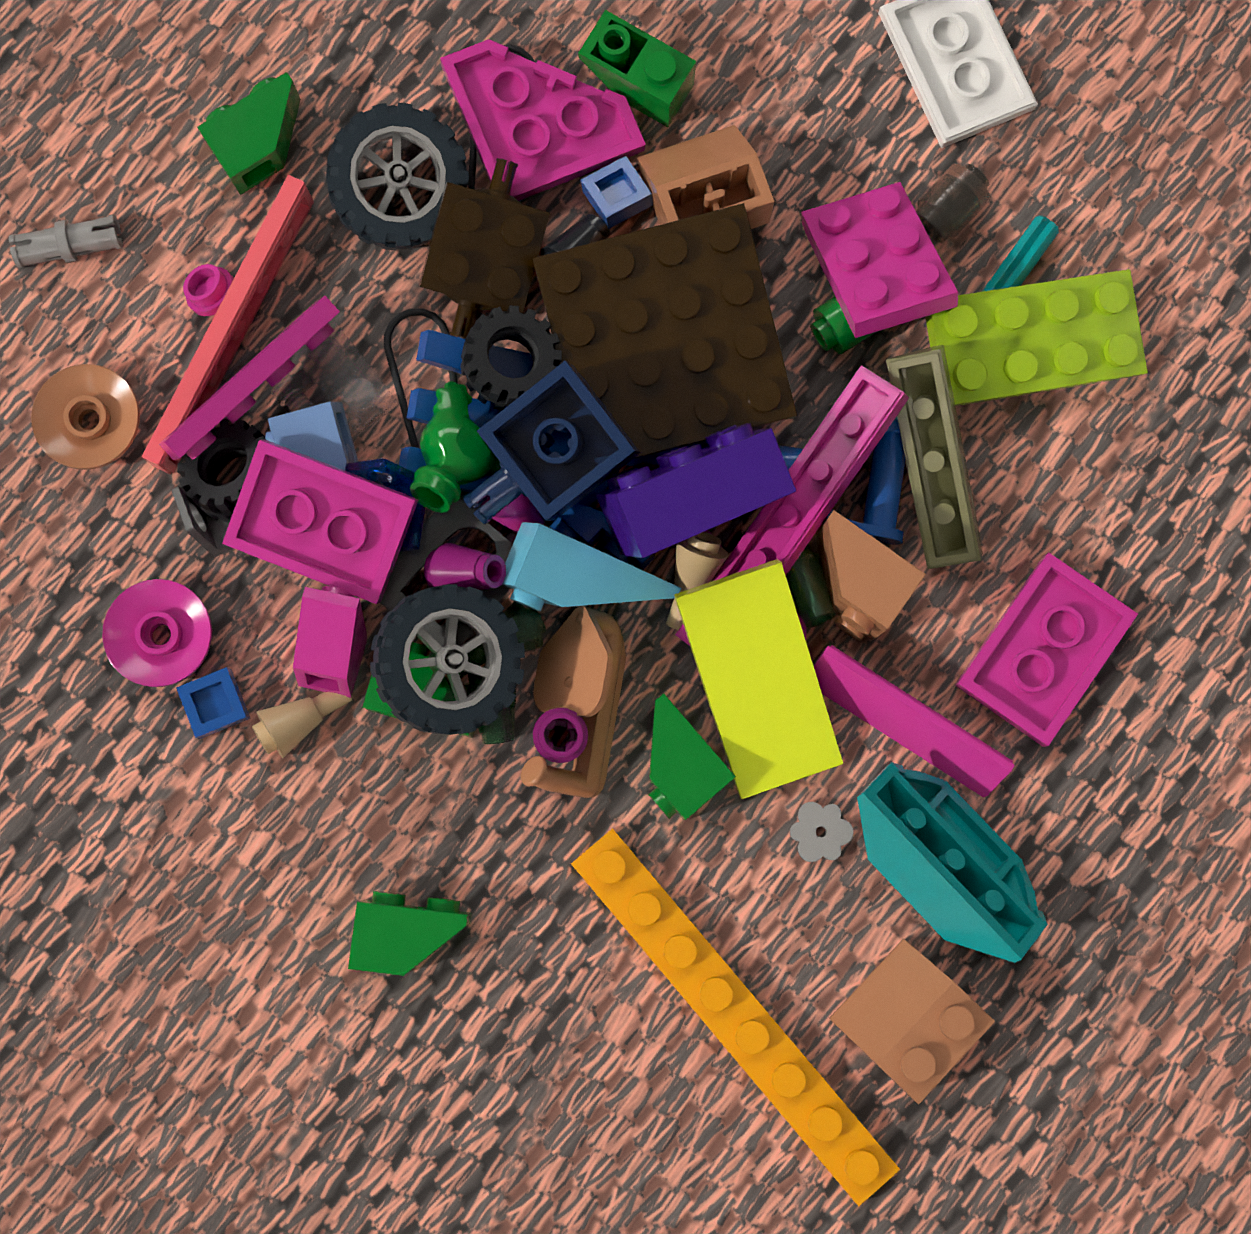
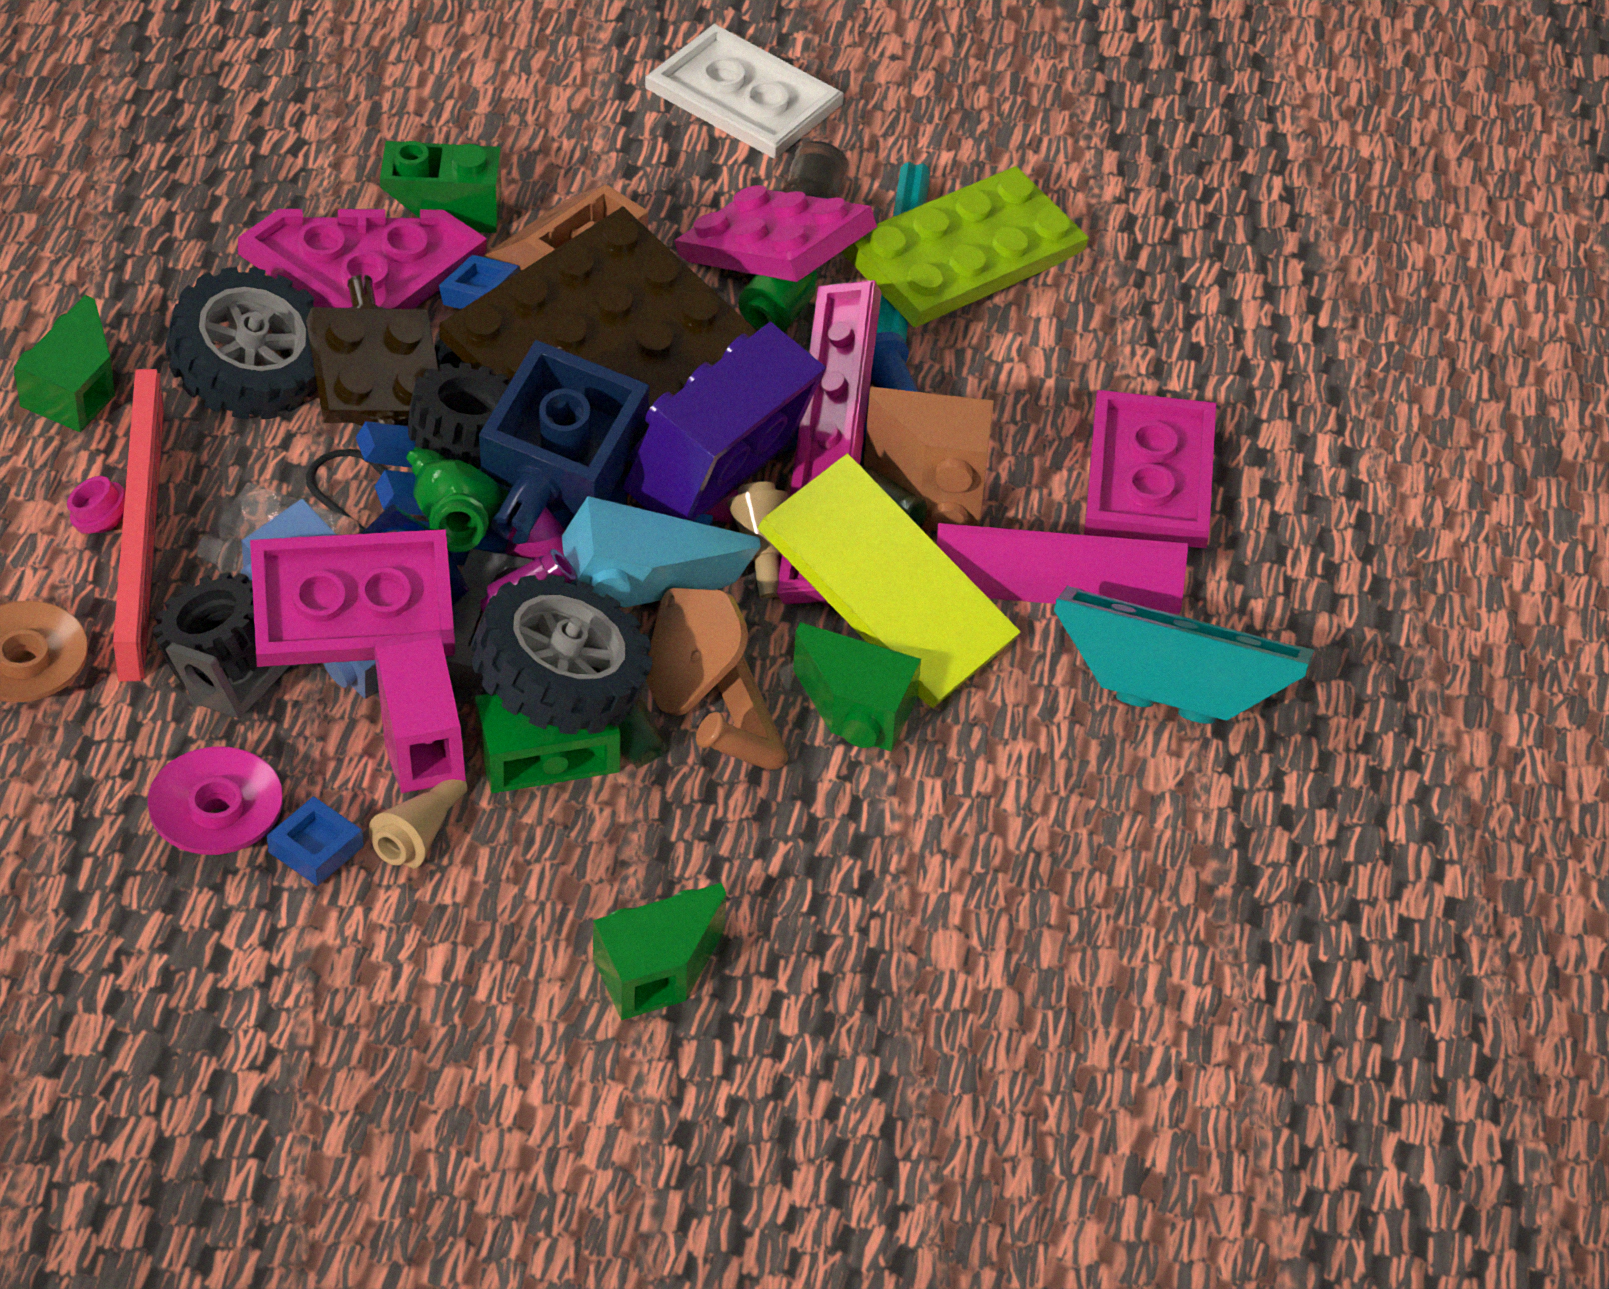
camera: 30 degrees left, 35 degrees down
(234, 397) = (190, 547): dark pink plate -> none
(572, 723) = (716, 694): magenta cone -> none
(736, 1017) = (1064, 886): light orange plate -> none
(837, 832) = (1038, 698): light grey plant -> none
(912, 1020) = (1244, 802): nougat slope -> none
(936, 458) = (939, 346): olive slope -> none

